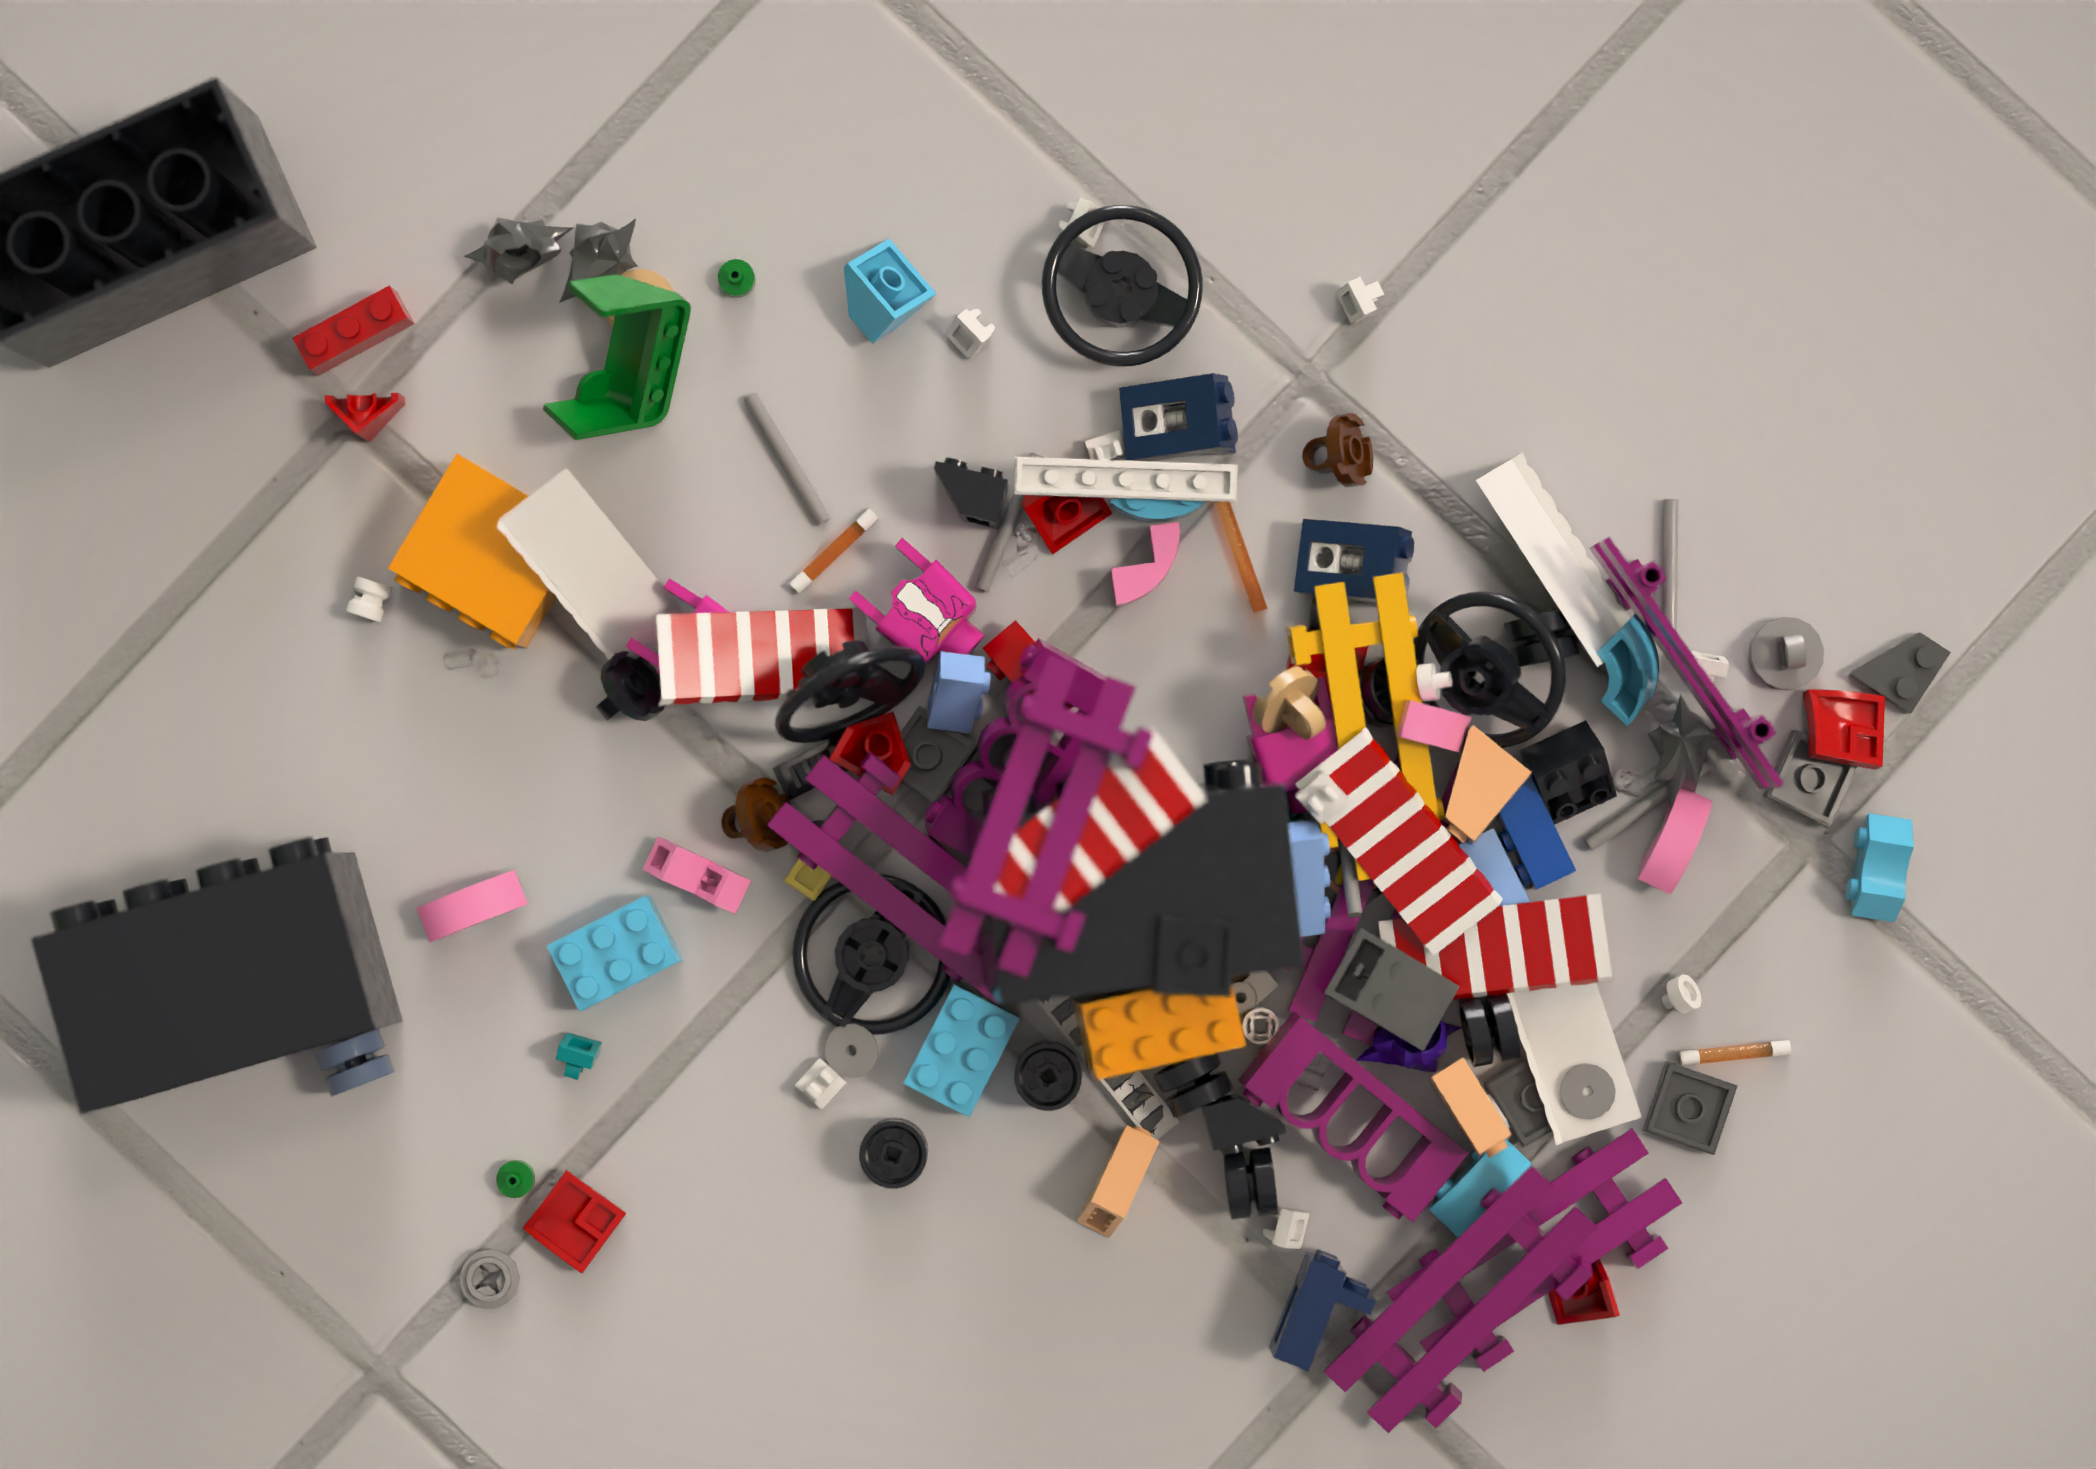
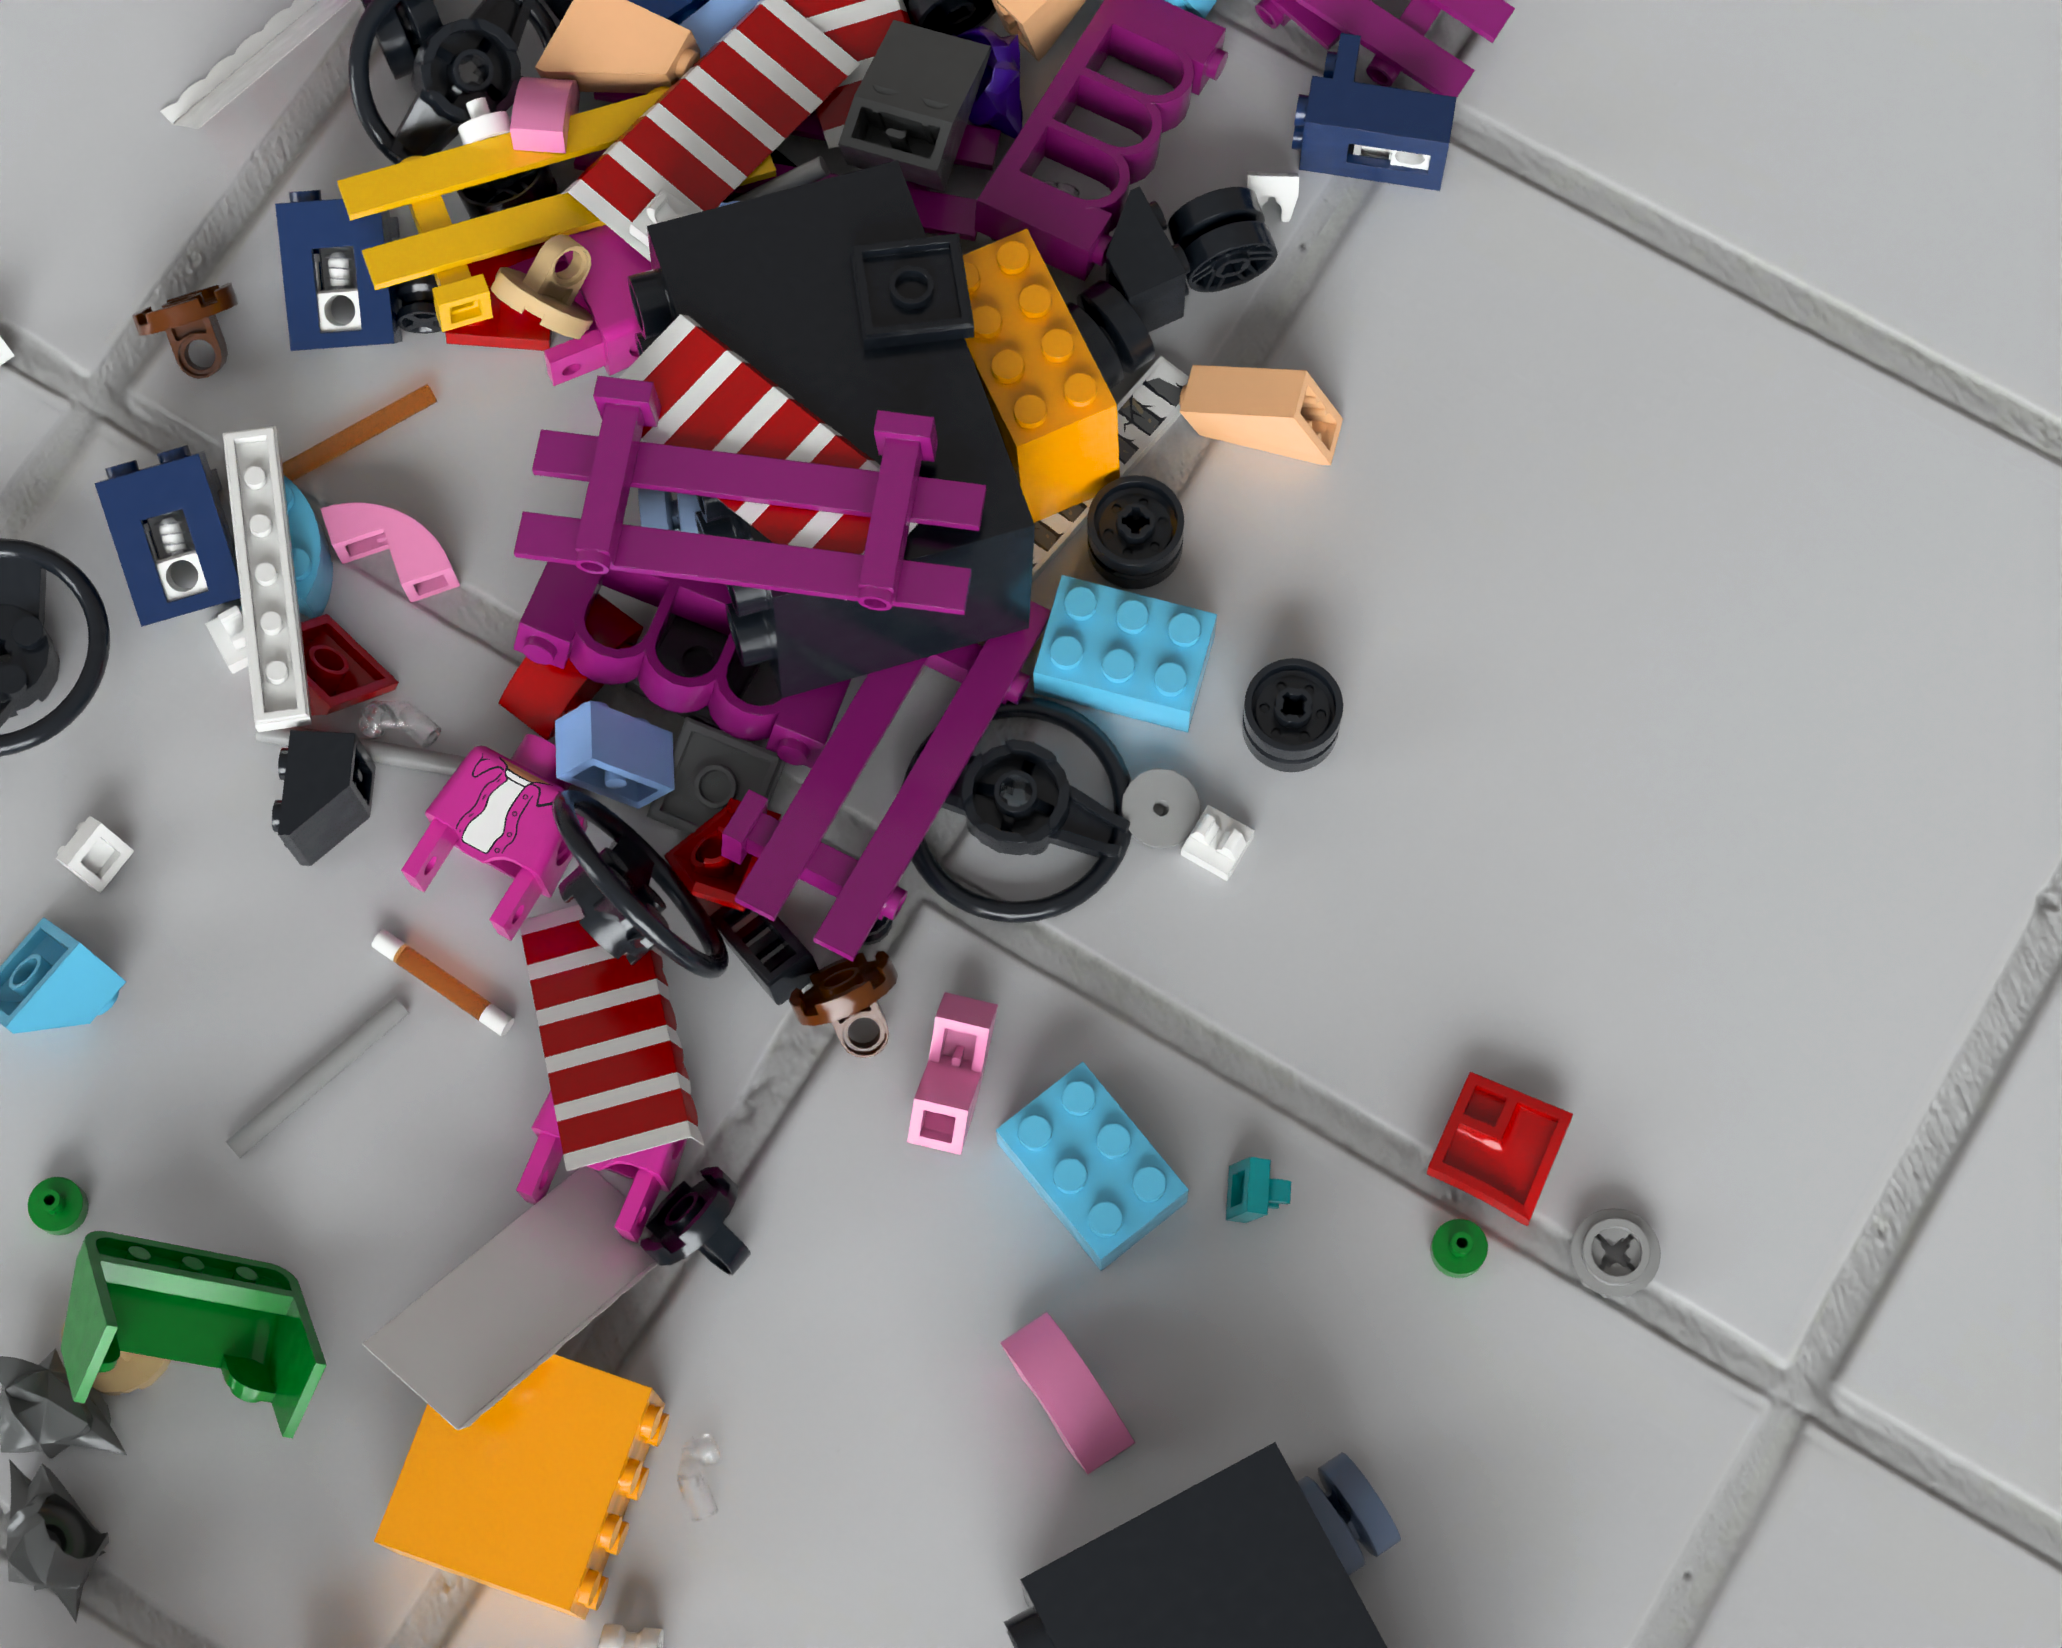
camera: 95 degrees left, 15 degrees down
(807, 880) = (923, 920): light yellow tile -> none

